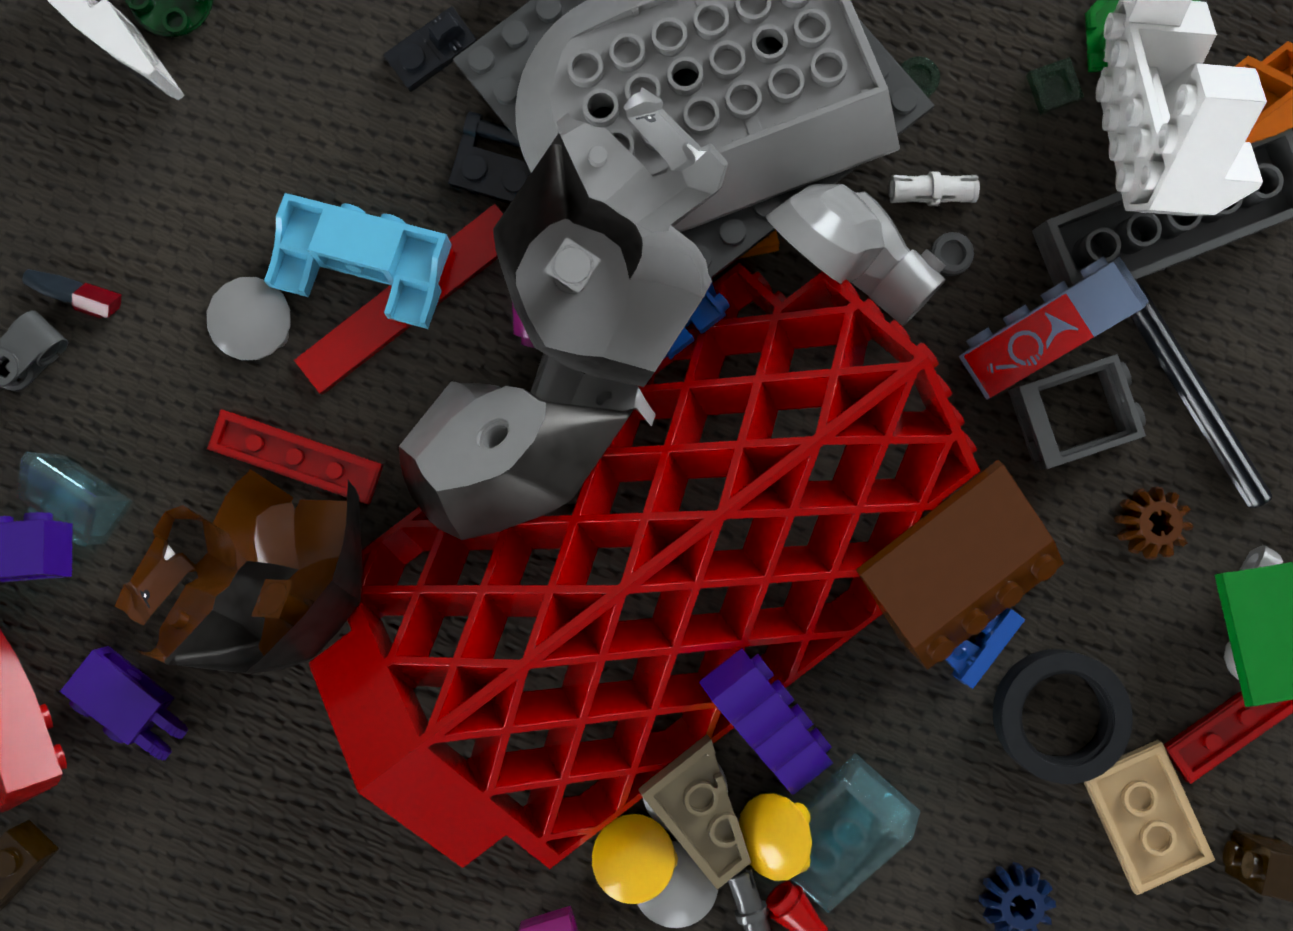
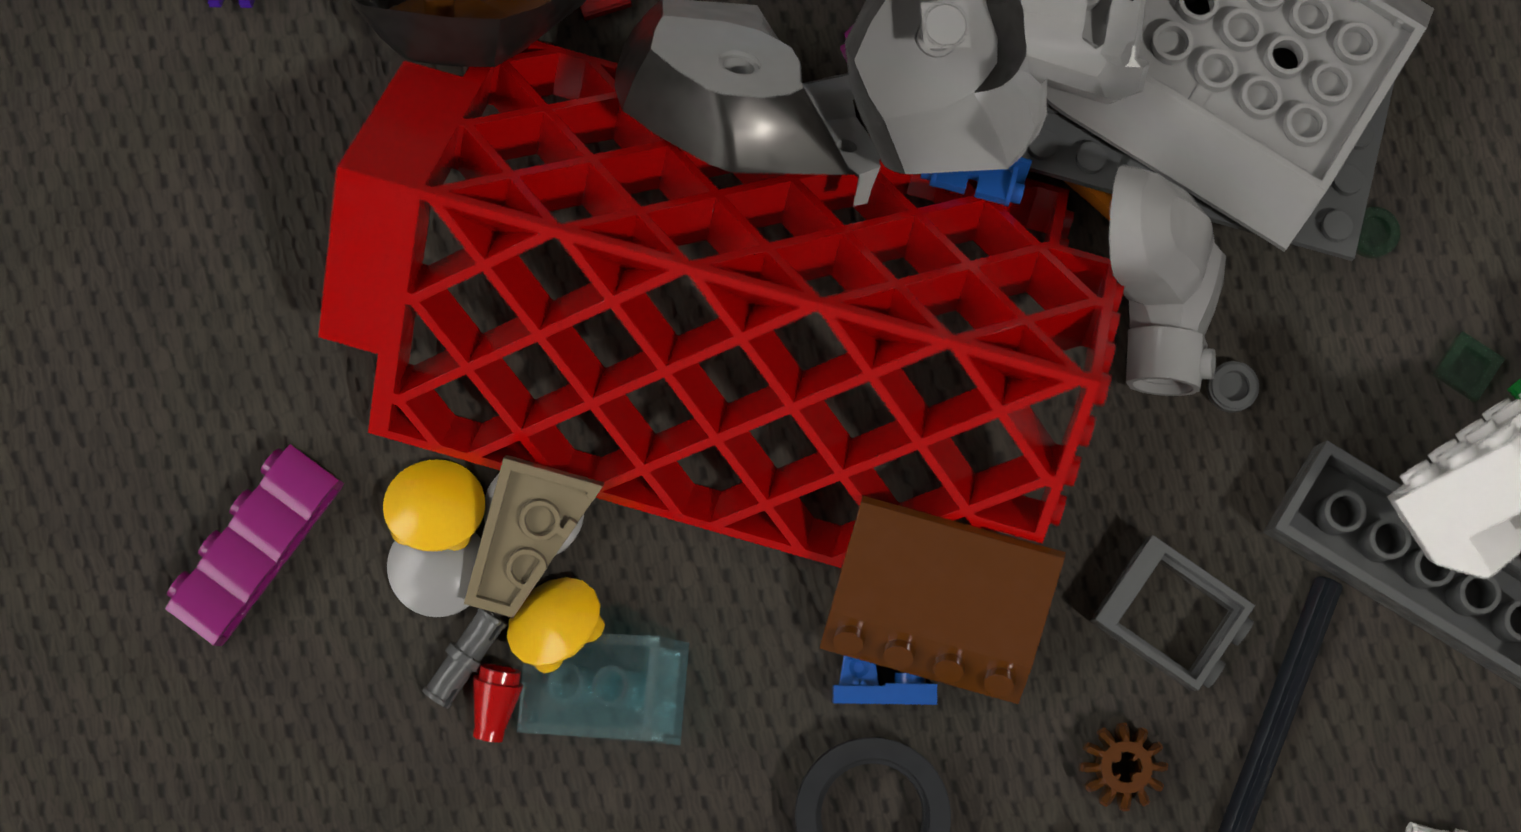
camera: 50 degrees right, 5 degrees down
(766, 721) = (659, 524): dark purple brick -> none
(934, 188) = (1280, 323): white pin -> none
(1053, 328) = (1230, 519): brick -> none

